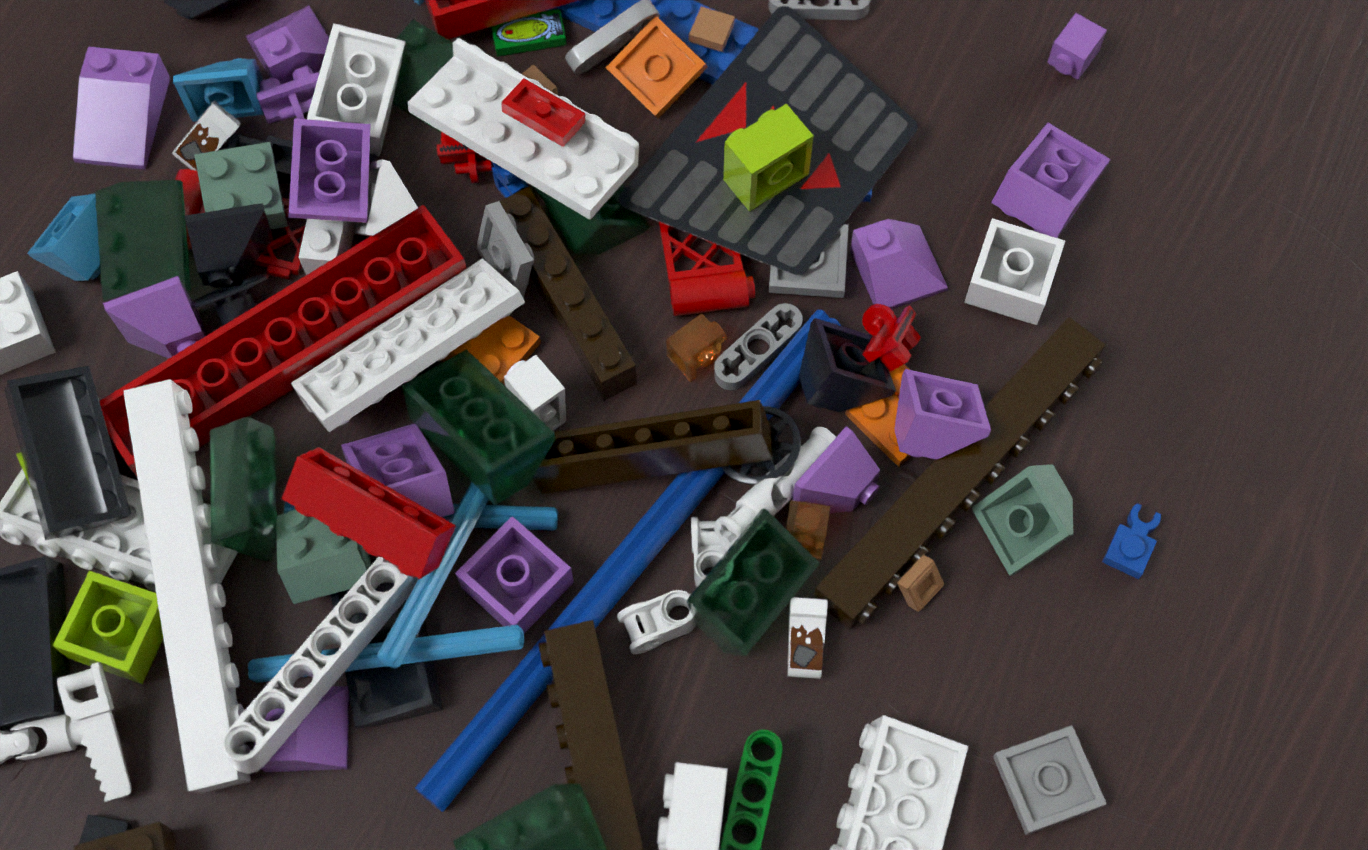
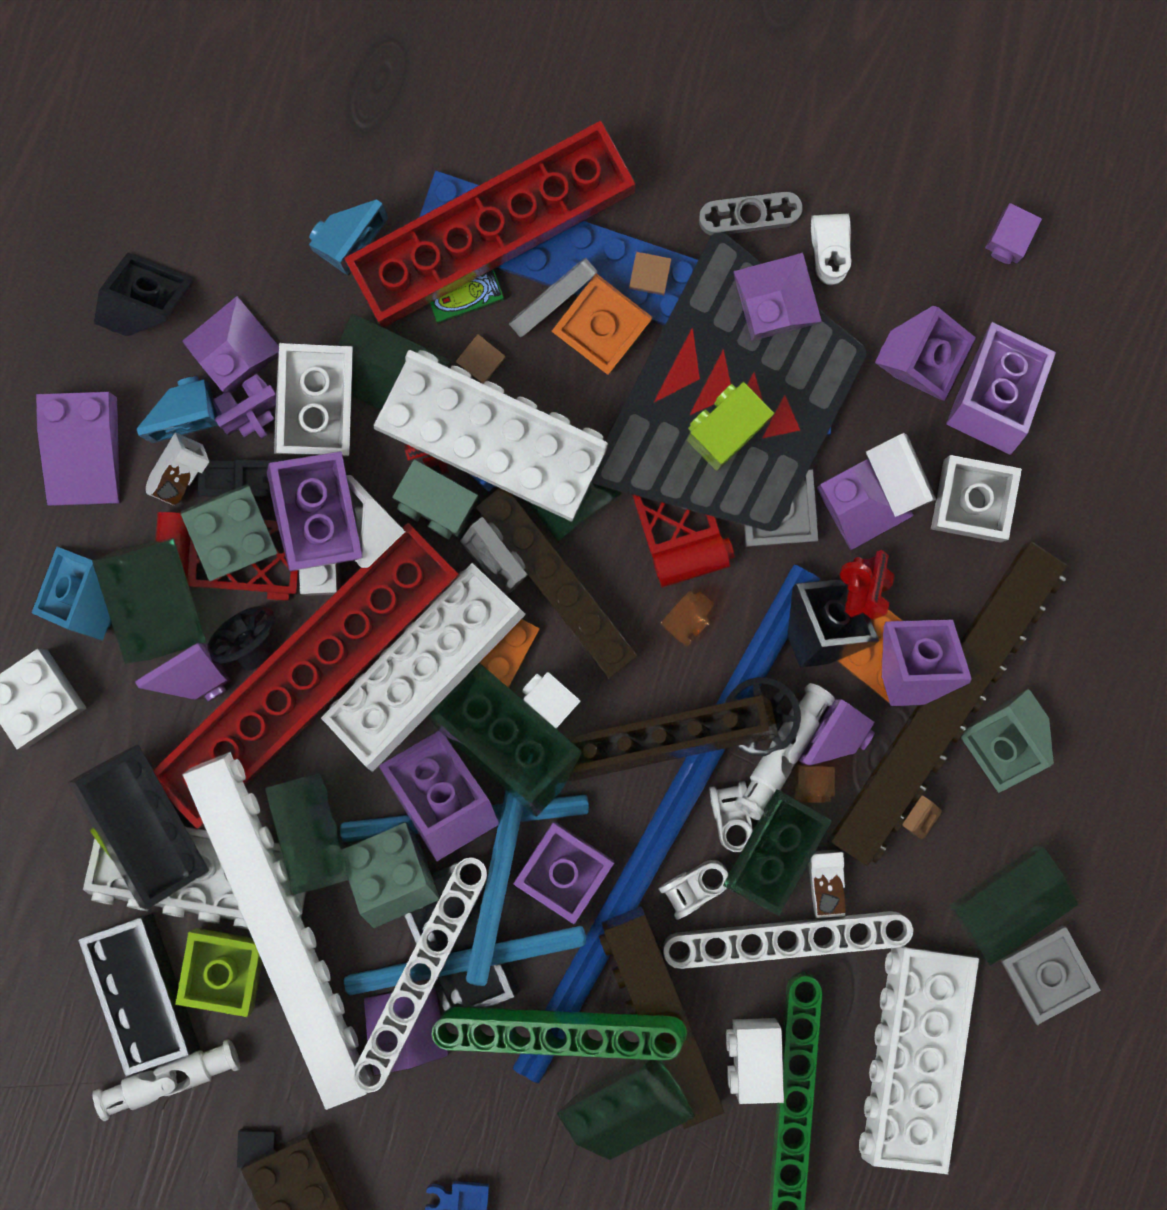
camera: 10 degrees left, 20 degrees up
(98, 729) = (230, 1064): white piece -> none
(228, 242) = (229, 596): black slope -> none
(368, 513) = (431, 857): red brick -> none
(453, 737) = (572, 1023): none -> green beam
(455, 190) = (436, 499): none -> sand green brick
(543, 112) = (510, 424): red plate -> none
(732, 355) = (768, 589): light grey beam -> none
(770, 682) = (804, 944): none -> white beam
(834, 65) = (777, 297): none -> medium lavender slope
(895, 37) = (831, 241): none -> white piece
(940, 237) = (901, 475): none -> white slope
(979, 135) = (926, 352): none -> medium lavender slope
(1015, 694) = (1014, 904): none -> clear green slope
(1130, 546) = (1103, 750): blue plate -> none

